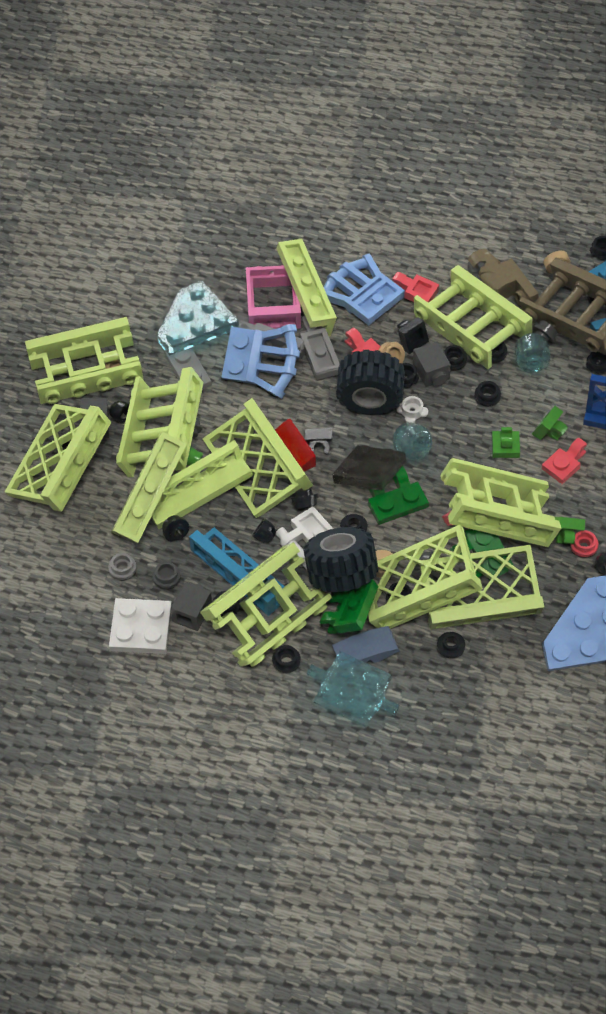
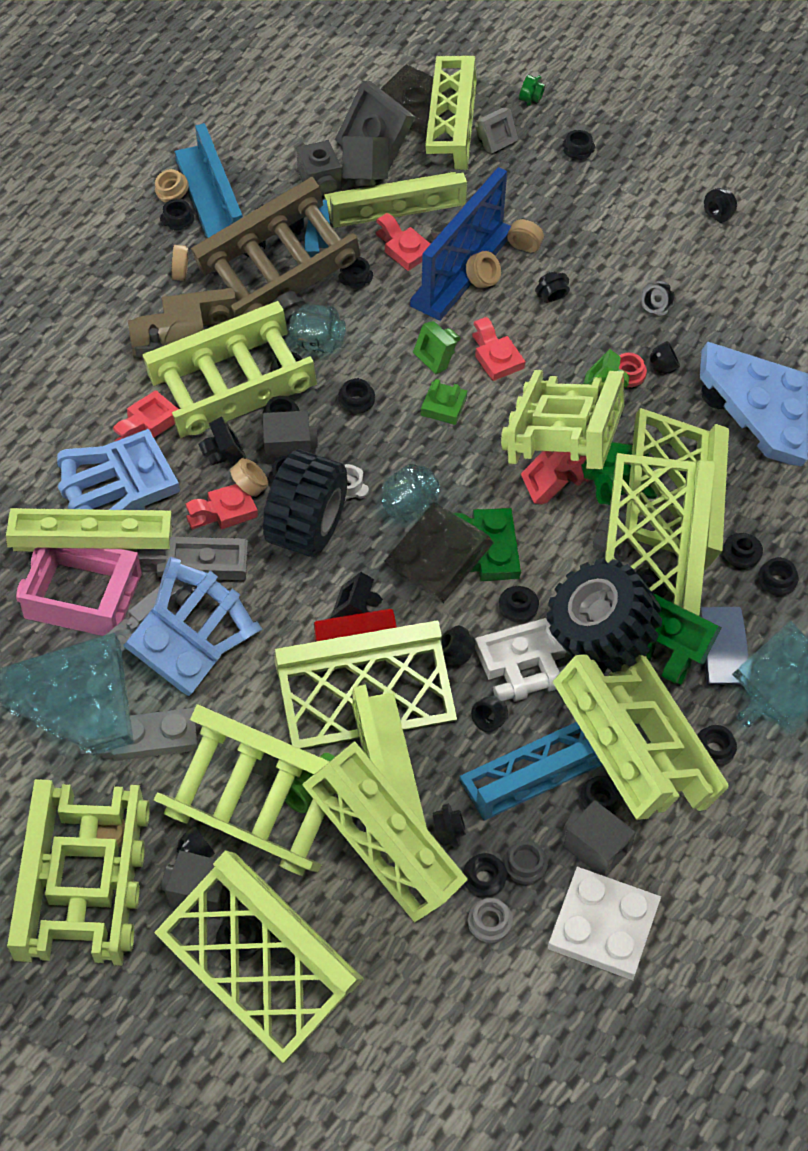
camera: 75 degrees left, 0 degrees up
(148, 550) = (488, 863): none -> black plate
(437, 663) = (780, 567): none -> black plate

